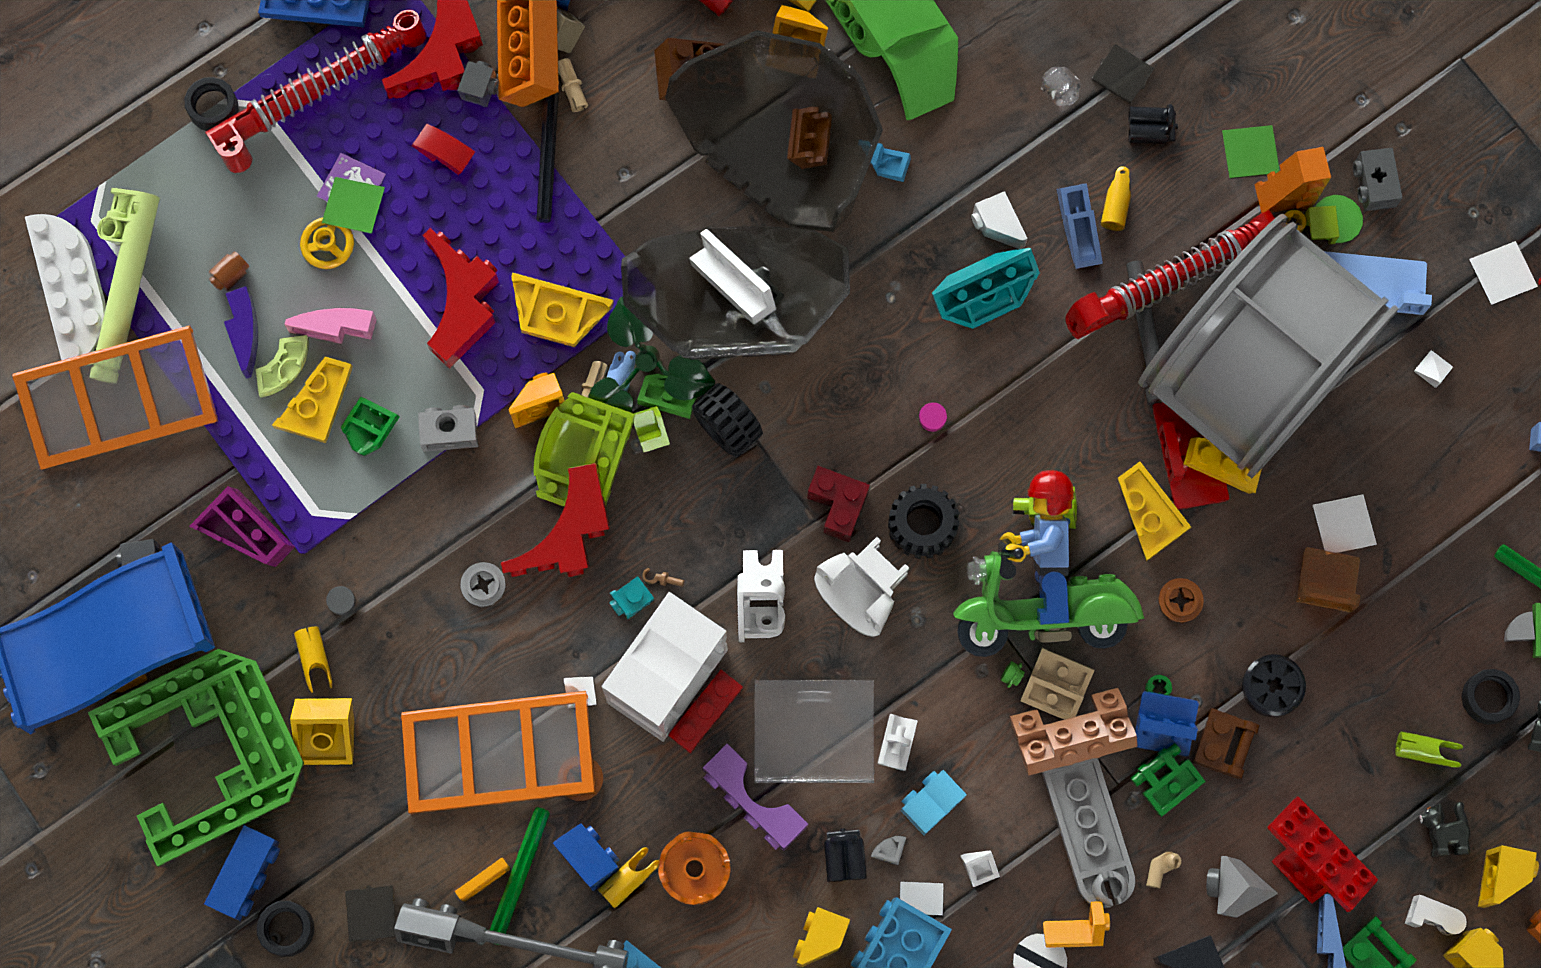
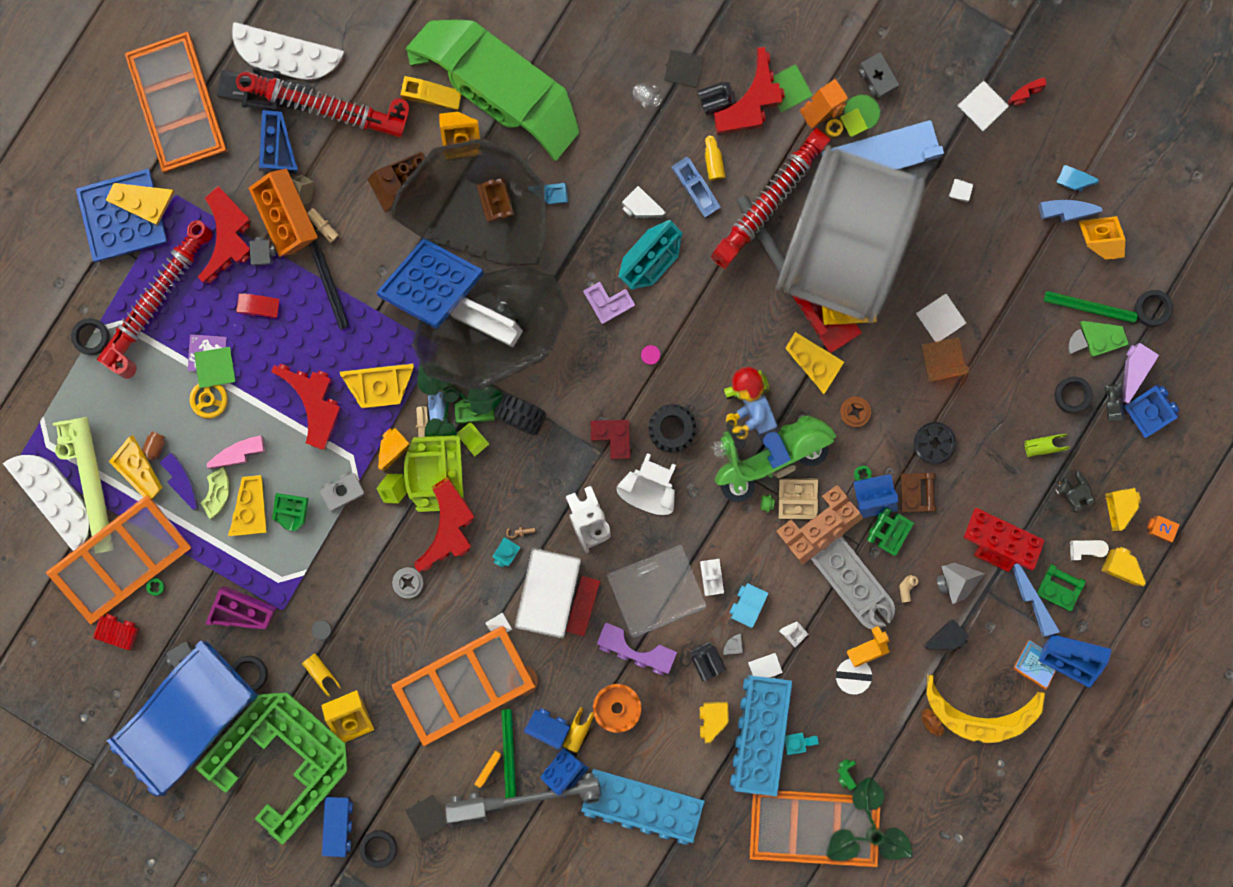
camera: 20 degrees left, 10 degrees up
(68, 493) = (115, 632): none -> red brick
(140, 451) = (149, 586): none -> green bush
(192, 289) = (135, 468): none -> yellow wing
(238, 611) = (259, 663): none -> black tyre
(516, 452) = (392, 488): none -> lime panel
(584, 927) = (563, 772): none -> blue bracket
(679, 205) = (430, 283): none -> blue plate
(898, 331) = (606, 307): none -> lavender plate
(1188, 156) = (761, 94): none -> red arch

